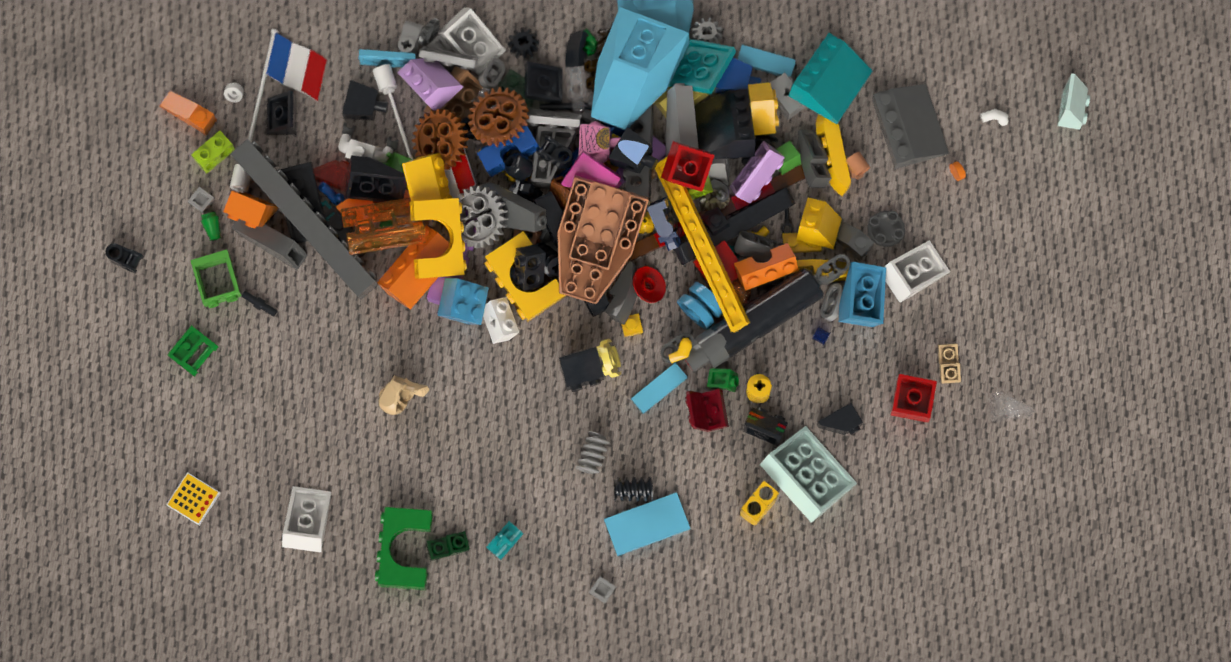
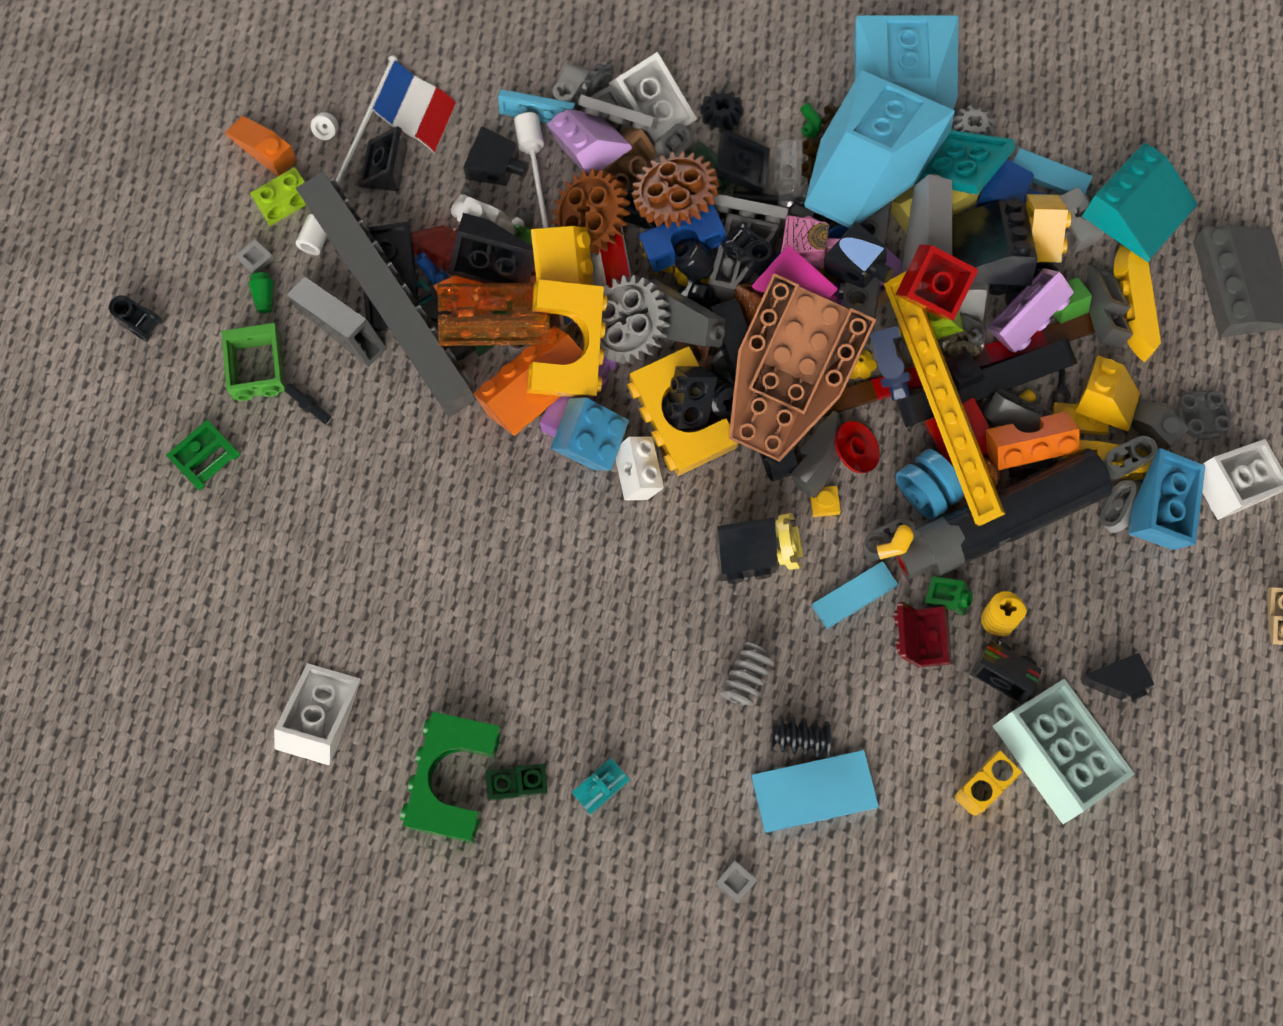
camera: 10 degrees right, 5 degrees down
(193, 499) = (162, 662): yellow tile -> none
(249, 208) = (311, 269): orange slope -> none
(397, 394) = (478, 551): tan head -> none
(574, 52) = (791, 122): black slope -> none
(821, 335) = (1098, 551): clear blue axle -> none
(857, 165) = (1173, 321): nougat piece -> none
(913, 398) = (1232, 659): red brick -> none

